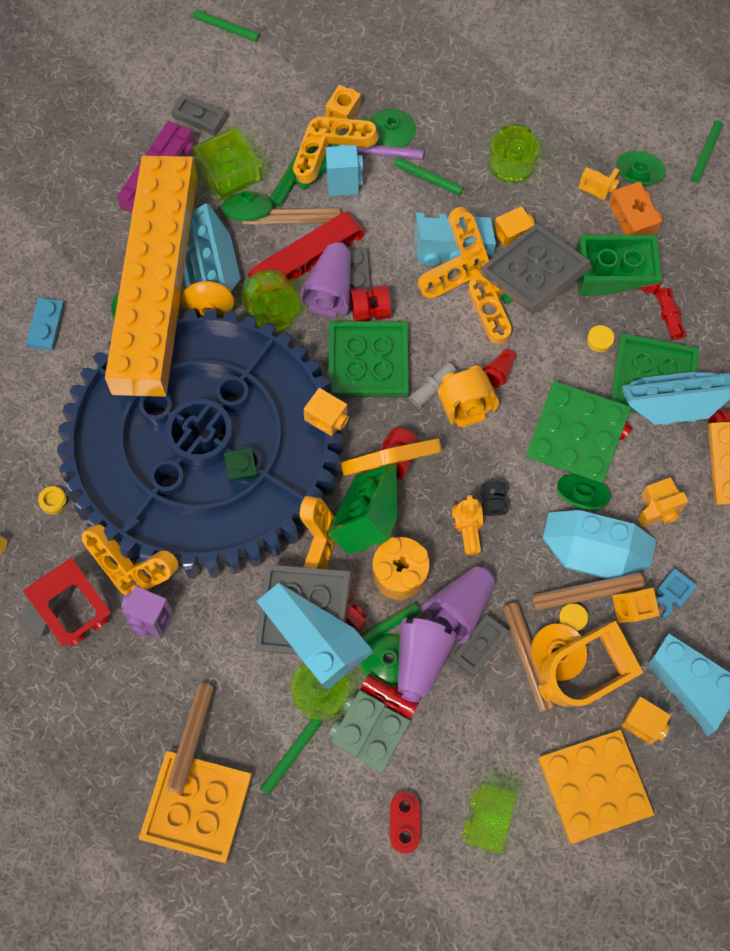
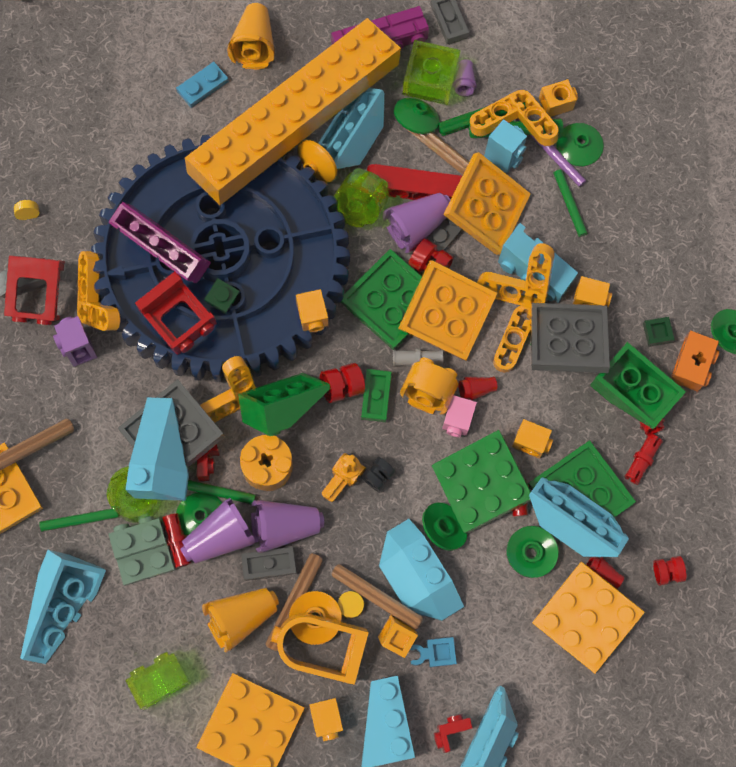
camera: 40 degrees right, 5 degrees up
(52, 500) = (90, 211): yellow tile -> none
(55, 252) = (252, 39): none -> light orange cone
(148, 464) = (159, 242): none -> magenta brick
(195, 510) = (165, 298): none -> red window
(260, 148) = (465, 80): none -> medium lavender cone
(337, 829) = (59, 594): none -> medium azure wedge
(371, 224) = (487, 203): none -> light orange plate
(391, 456) = (331, 383): light orange beam -> none
(404, 822) = (107, 632): red plate -> none
(422, 328) = (447, 310): none -> light orange plate
(426, 430) = (376, 395): none -> green plate
(500, 708) = (239, 615): none -> light orange cone
(512, 401) = (459, 416): none -> bright pink brick
(513, 153) = (633, 240): clear neon green brick -> none
(580, 369) = (532, 439): none -> light orange brick
(587, 213) = (658, 331): none -> dark green plate
(599, 184) = (689, 318): light orange bracket -> none
(600, 338) = (573, 430): yellow tile -> none
(662, 503) = (491, 586): light orange brick -> none
(668, 441) = (538, 540): none -> green dish

